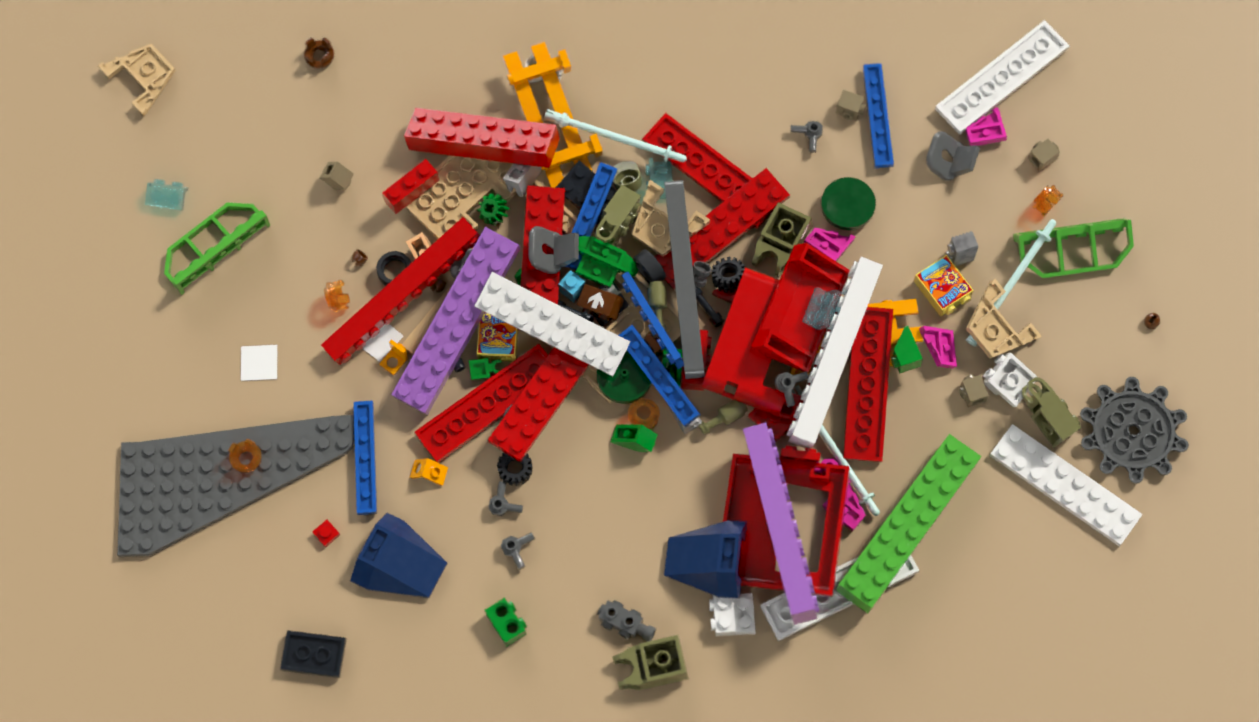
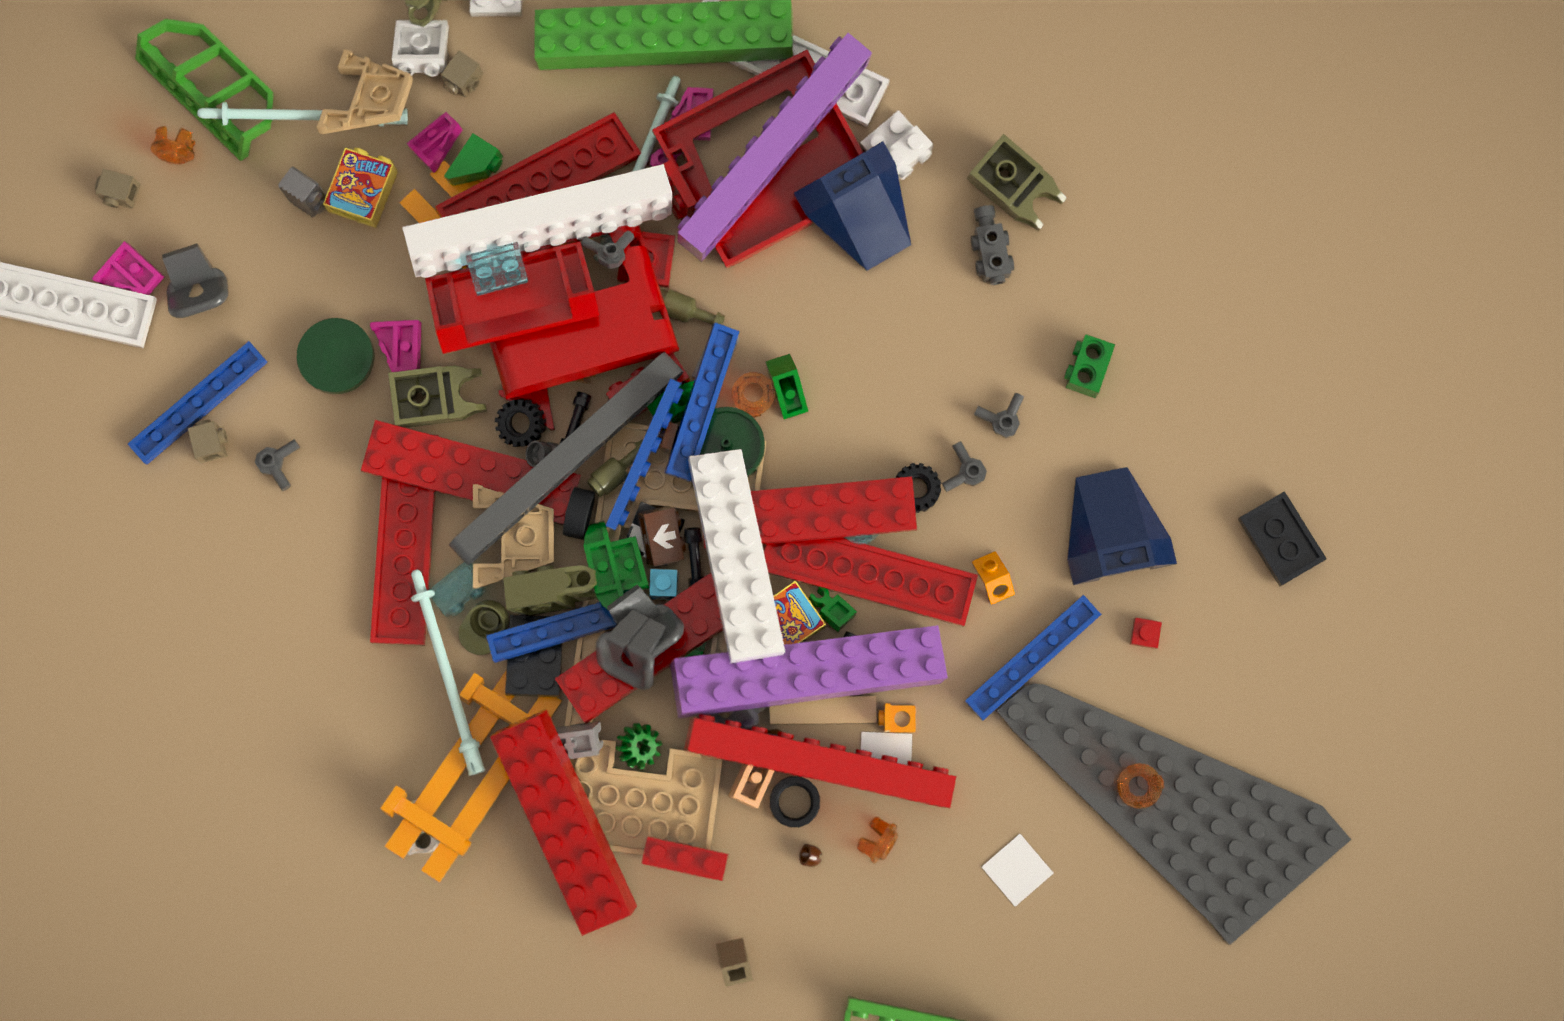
camera: 130 degrees left, 10 degrees up
(547, 236) = (639, 638): none -> dark grey piece

